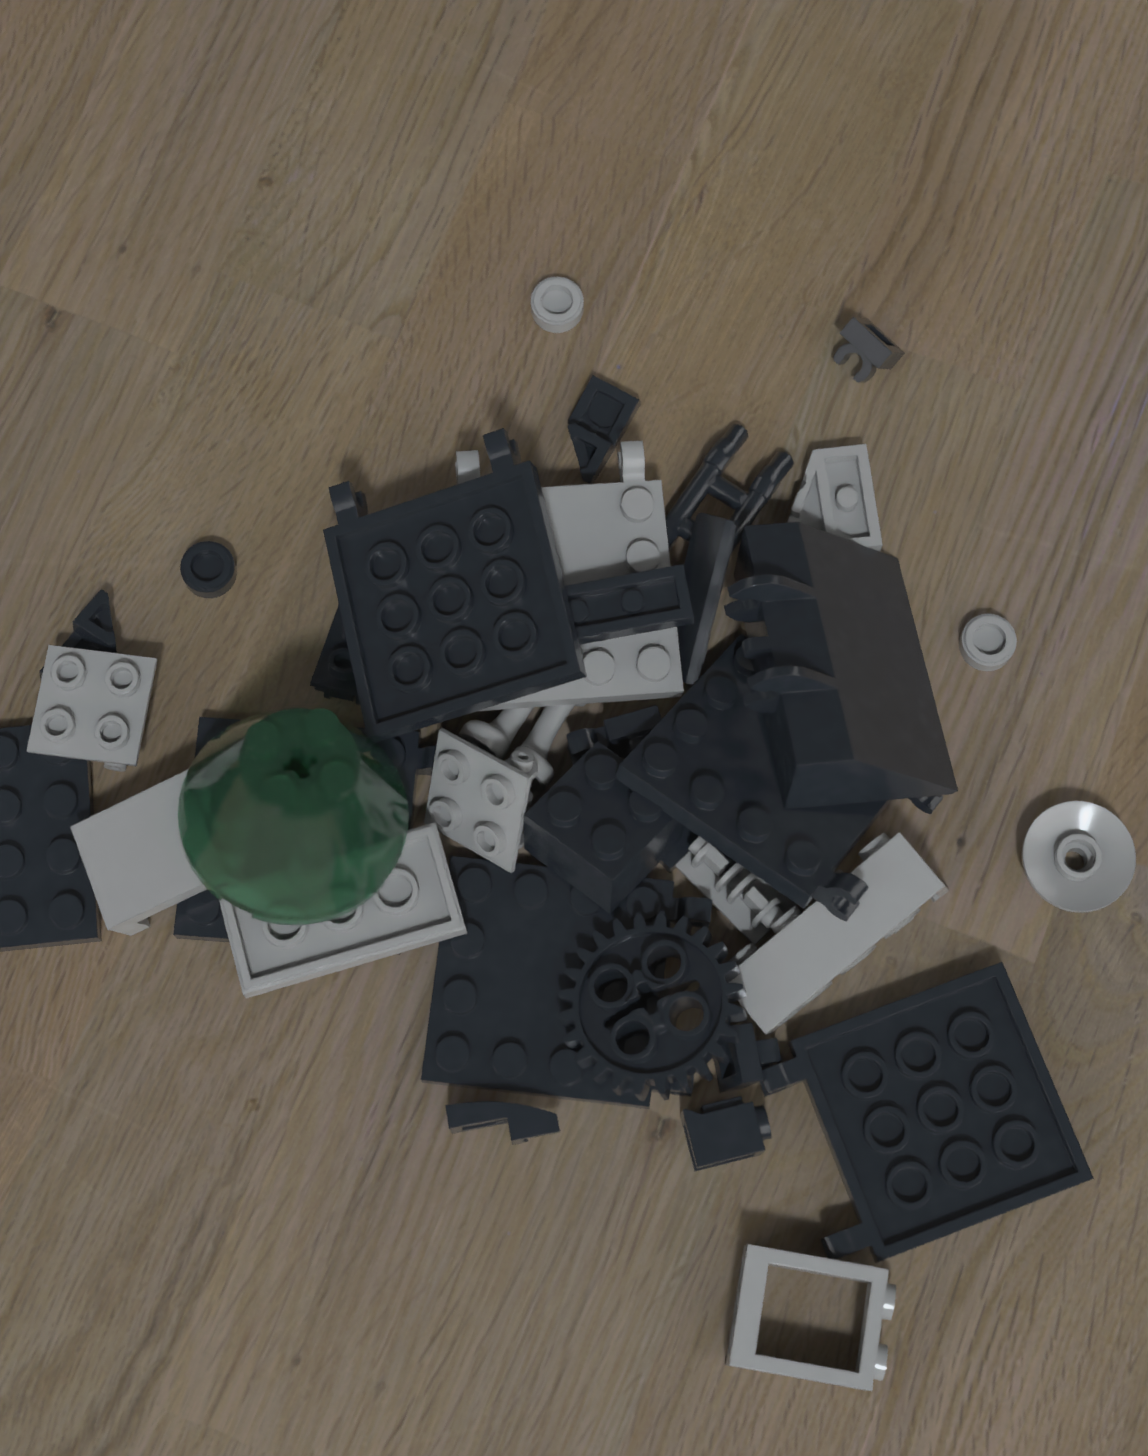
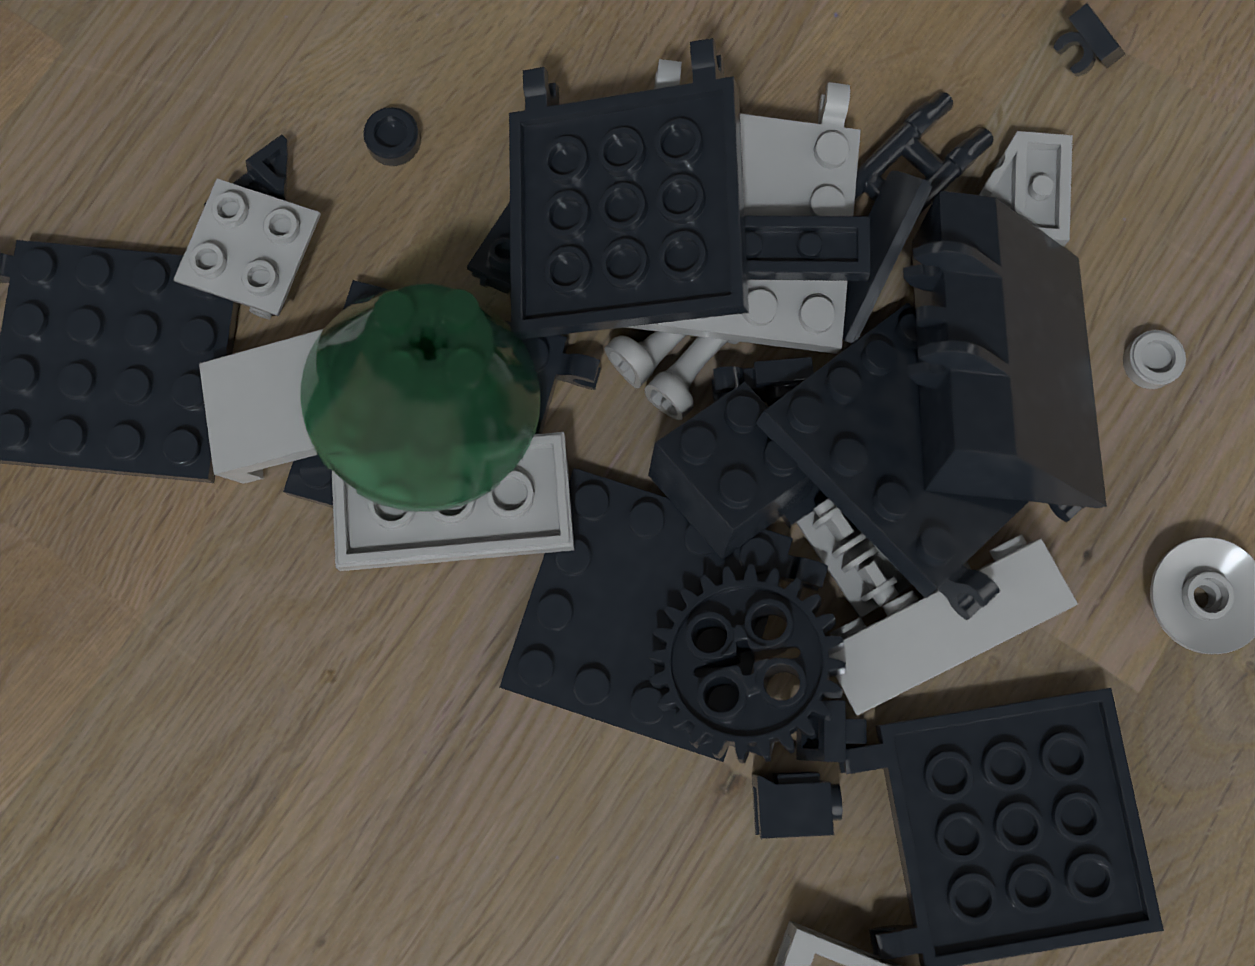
camera: 10 degrees right, 5 degrees up
(480, 798) = (615, 416): light grey hinge -> none
(522, 1120) = (592, 752): black slope -> none
(599, 425) = (807, 66): black slope -> none

